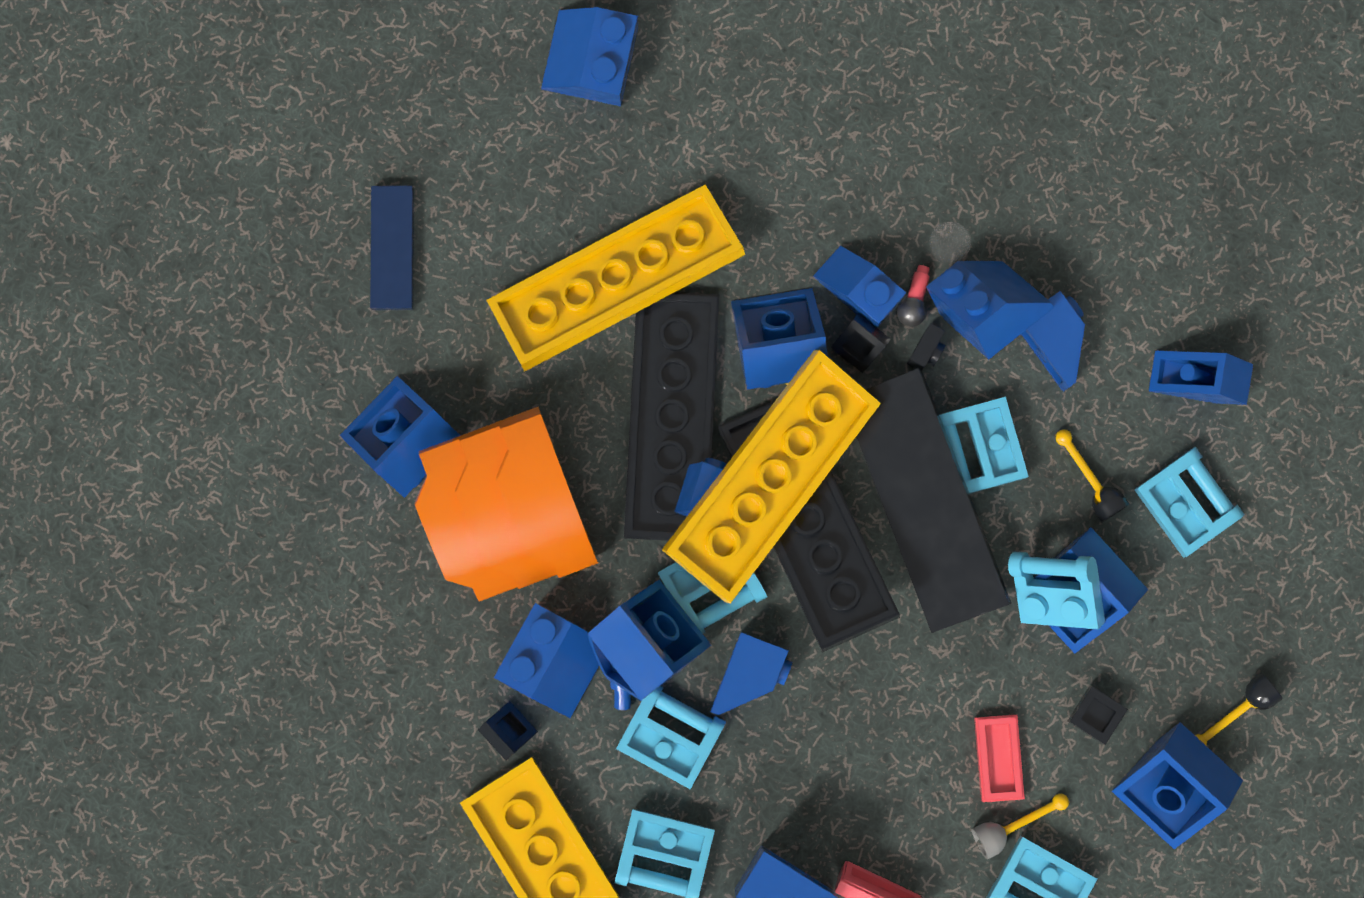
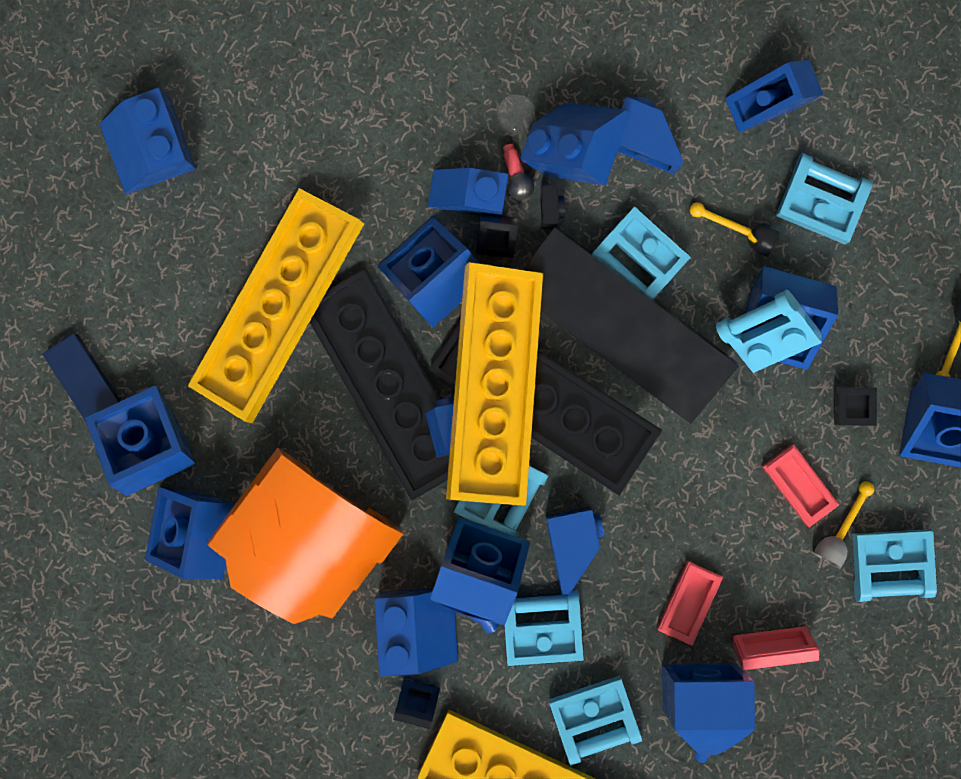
camera: 25 degrees left, 5 degrees up
(411, 322) = (139, 441): none -> blue slope
(824, 802) = (689, 603): none -> coral tile

